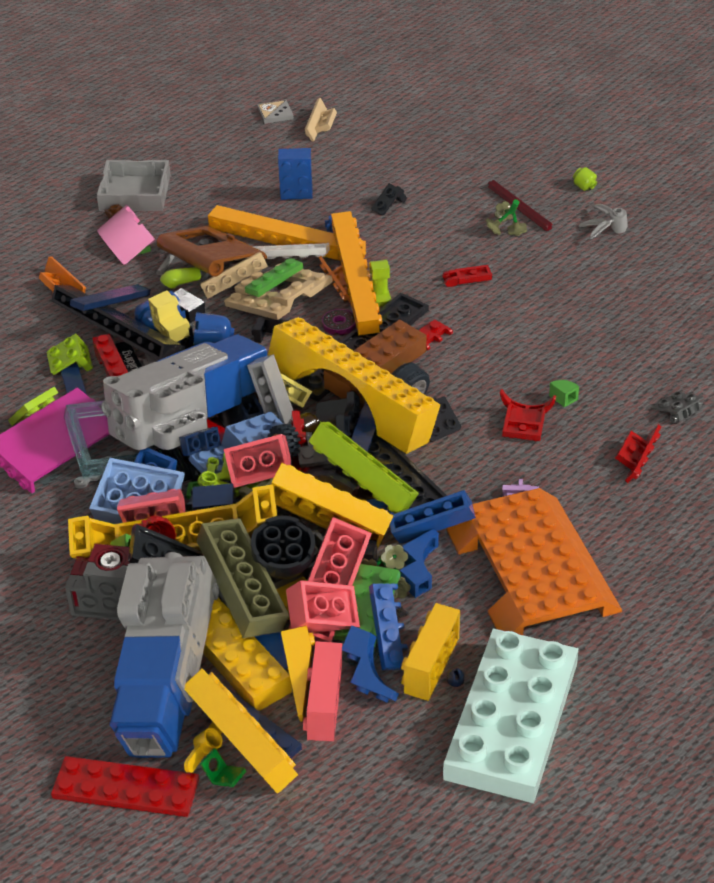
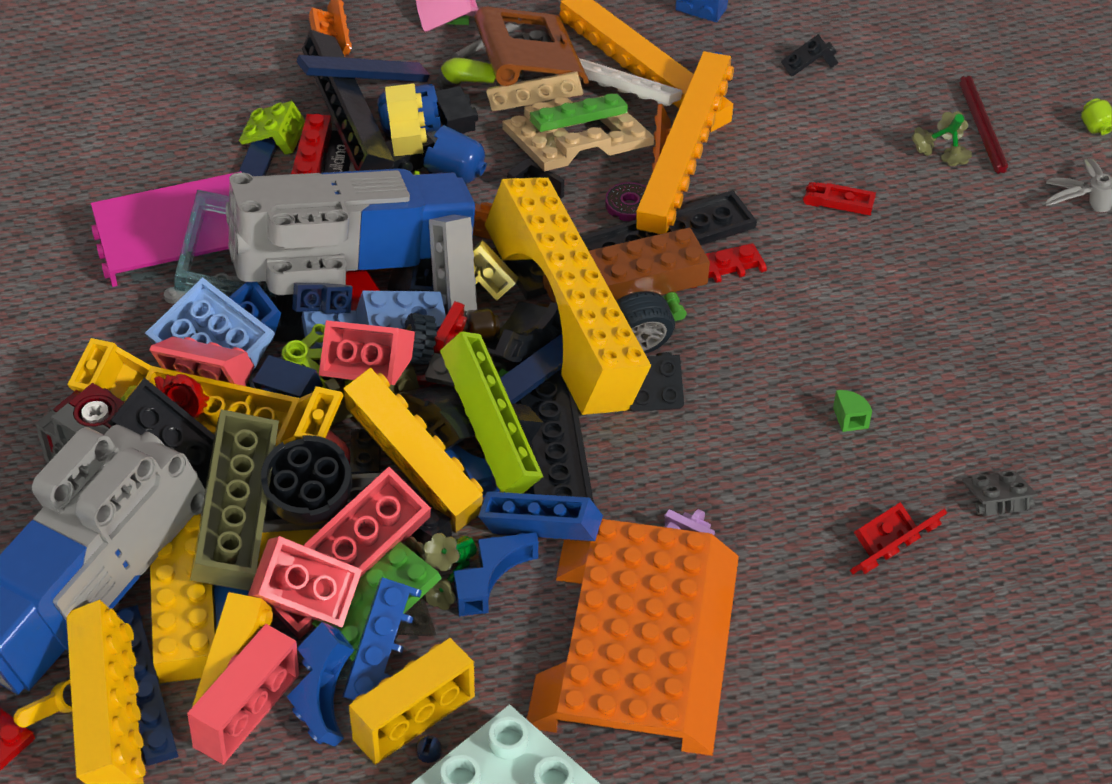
camera: 25 degrees right, 5 degrees up
(34, 406) = (176, 175): lime plate -> none
(223, 774) = (60, 748): green bracket -> none
(379, 276) = (712, 166): lime piece -> none
(524, 420) = (770, 427): red piece -> none

